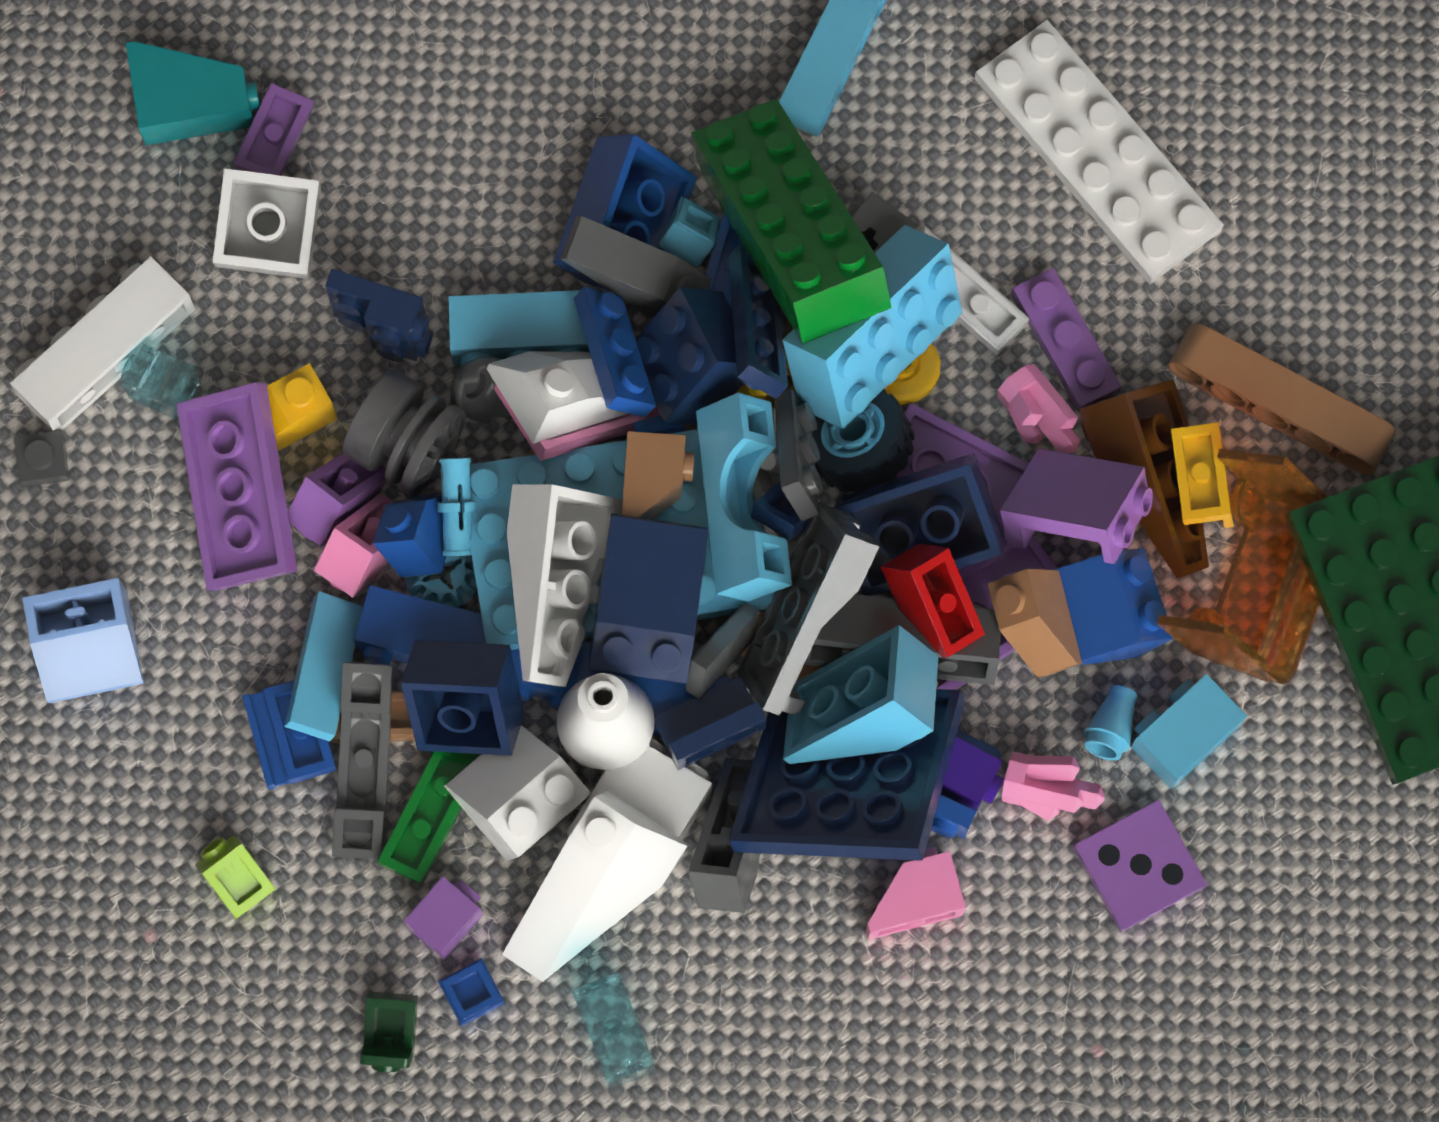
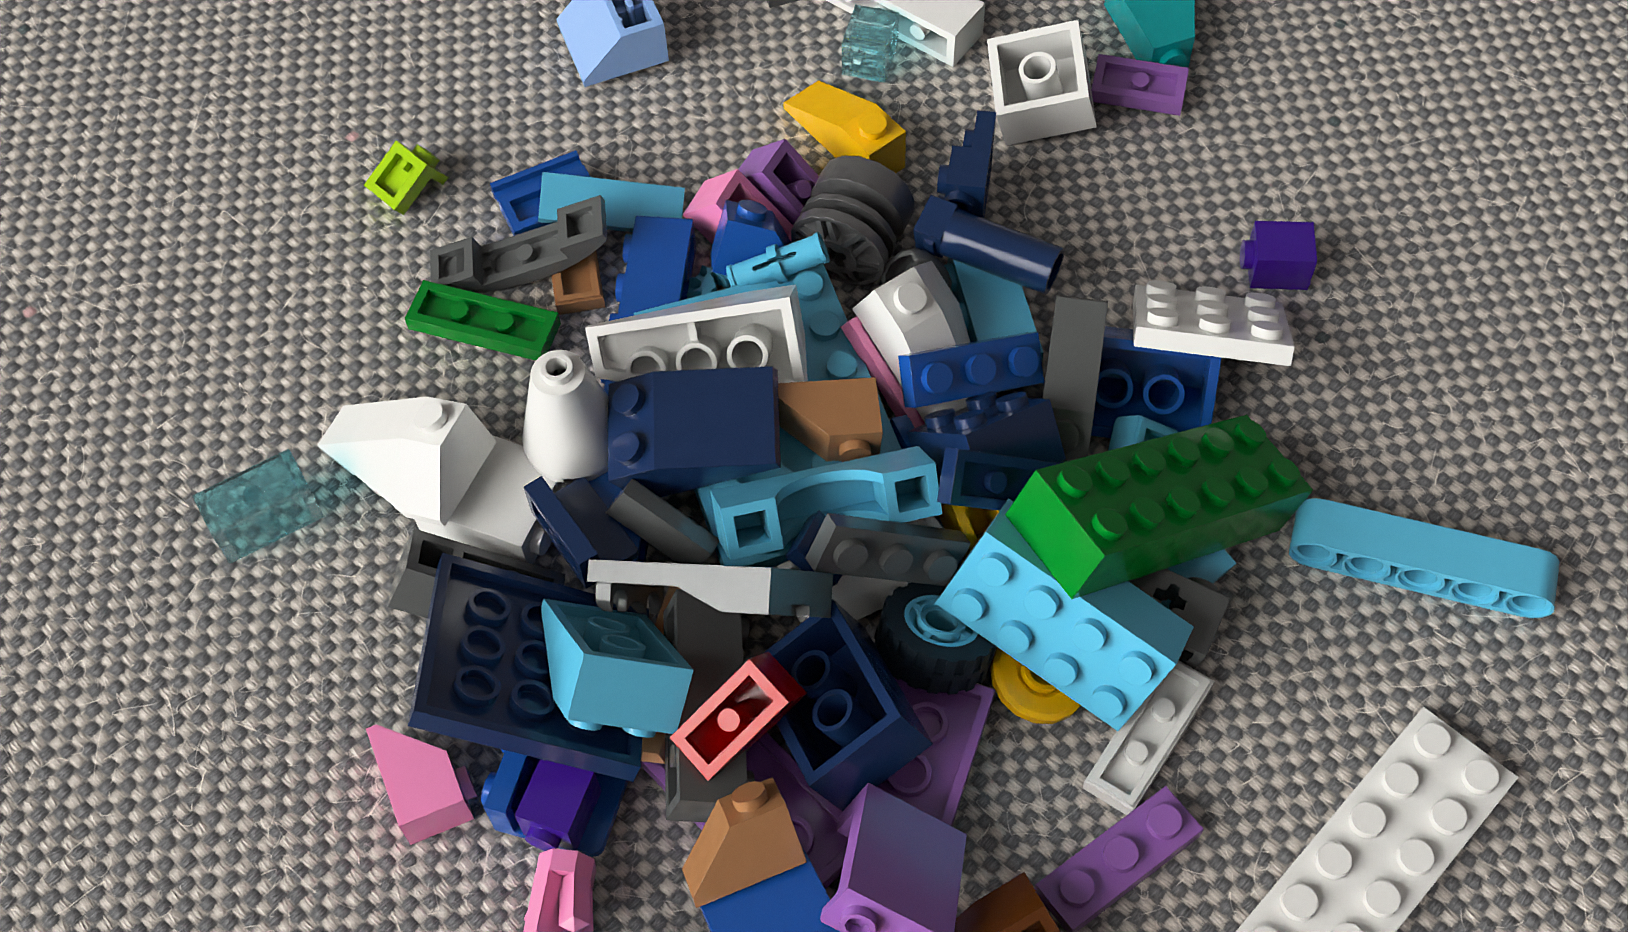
camera: 85 degrees right, 15 degrees down
(236, 487) = (775, 104): medium lavender plate -> none
(389, 1031) = (258, 321): dark green bracket -> none
(445, 916) = (372, 344): medium lavender brick -> none
(463, 697) = (578, 289): dark blue brick -> none
(471, 992) = (304, 387): blue tile -> none
(475, 310) = (987, 245): none -> dark blue piece
(509, 59) = (1280, 255): none -> dark purple brick
(518, 794) = (489, 373): white slope -> none
(590, 138) = (1211, 323): none -> white plate
(1038, 409) = (1019, 833): bright pink rock -> none

